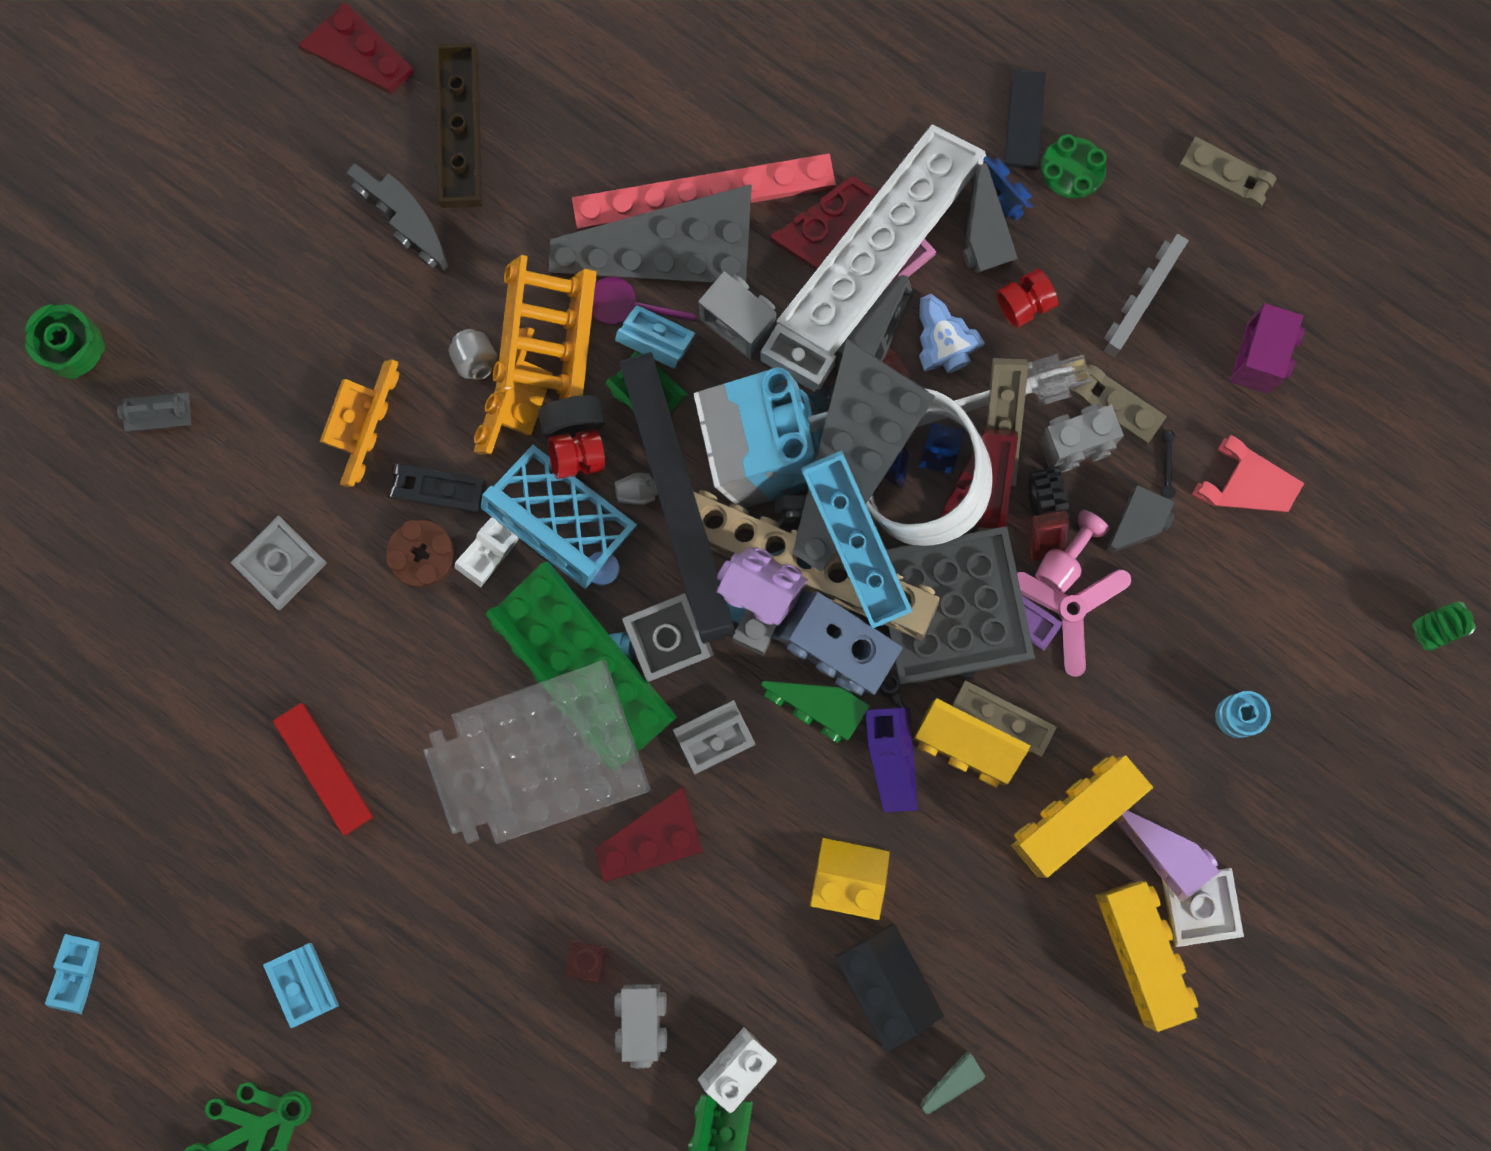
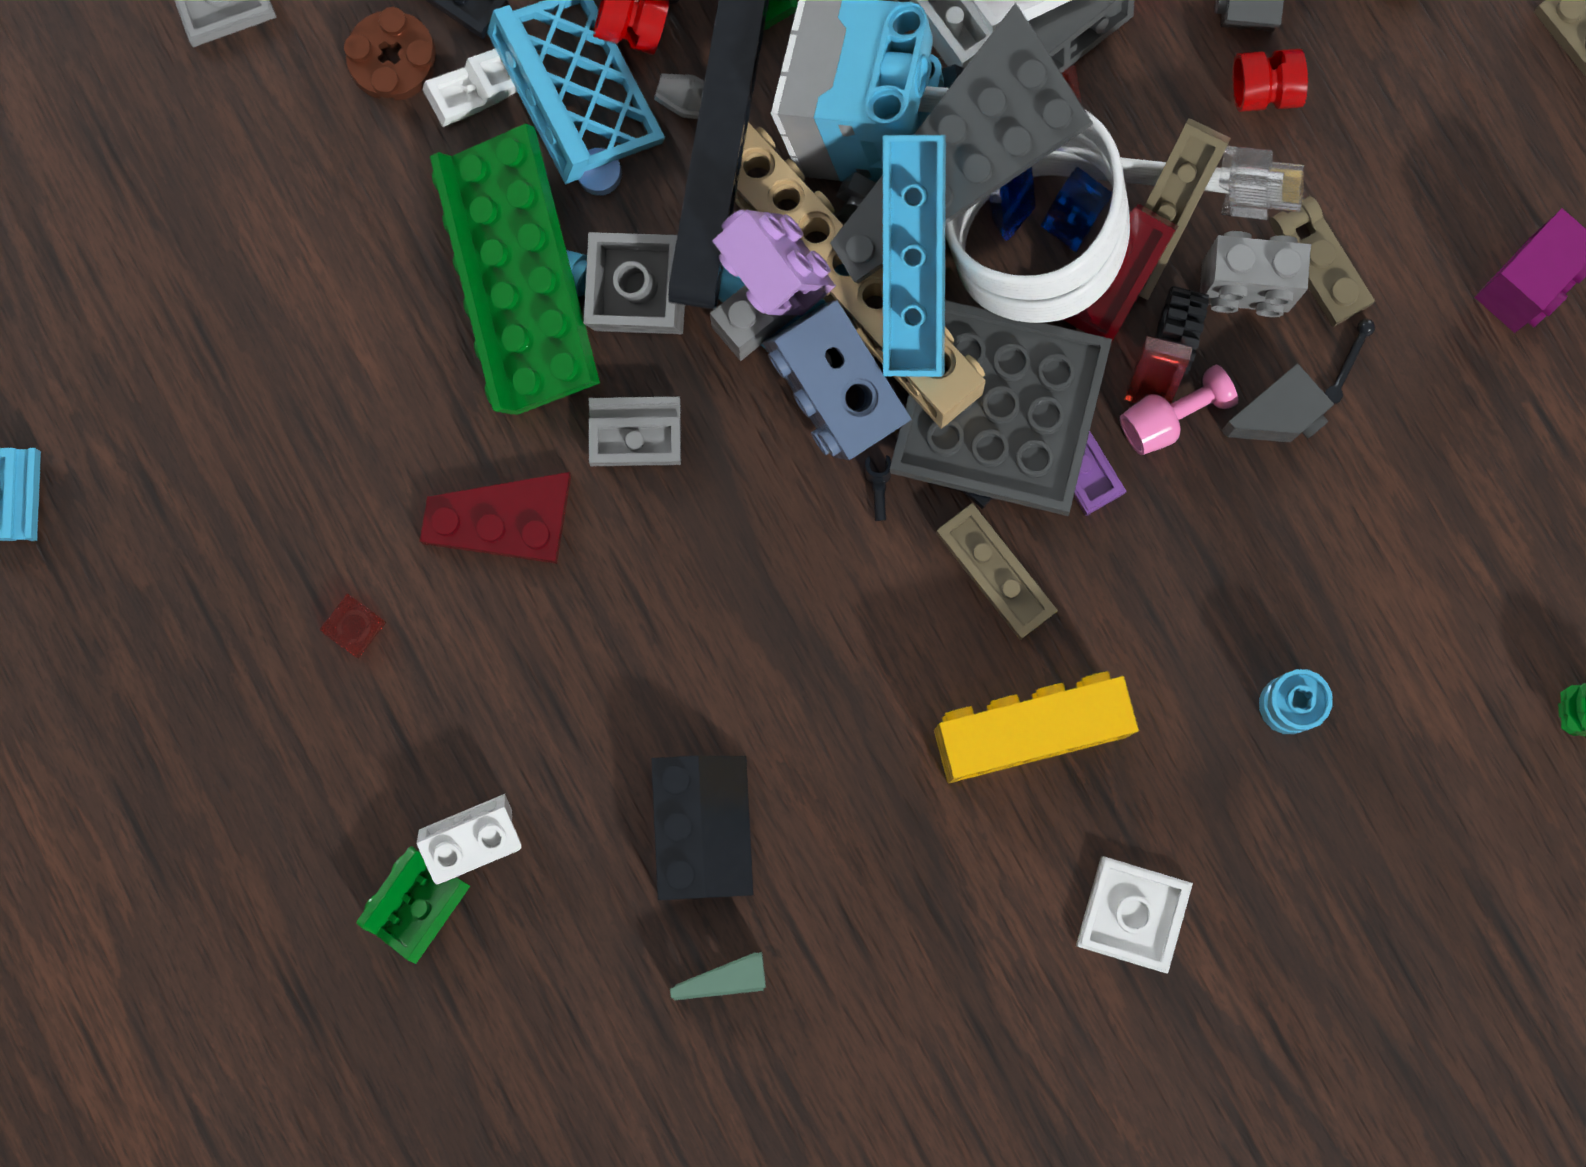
camera: 25 degrees right, 0 degrees up
(323, 769) = (153, 254): red tile -> none
(537, 757) = (409, 352): clear plate -> none
(640, 1036) = (378, 726): light grey brick -> none
(825, 705) = (789, 456): green slope -> none
(850, 879) = (716, 676): yellow slope -> none
(893, 757) = (839, 552): dark purple slope -> none
(945, 338) = (1146, 85): light blue rock -> none
(970, 743) = (940, 578): yellow slope -> none
(1084, 601) = (1139, 499): bright pink piece -> none
(1137, 305) = (1431, 132): light grey plate -> none
(1146, 955) = (1035, 935): yellow brick -> none
(1173, 857) = (1126, 834): lavender slope -> none
(1253, 483) = (1443, 432): coral flag -> none

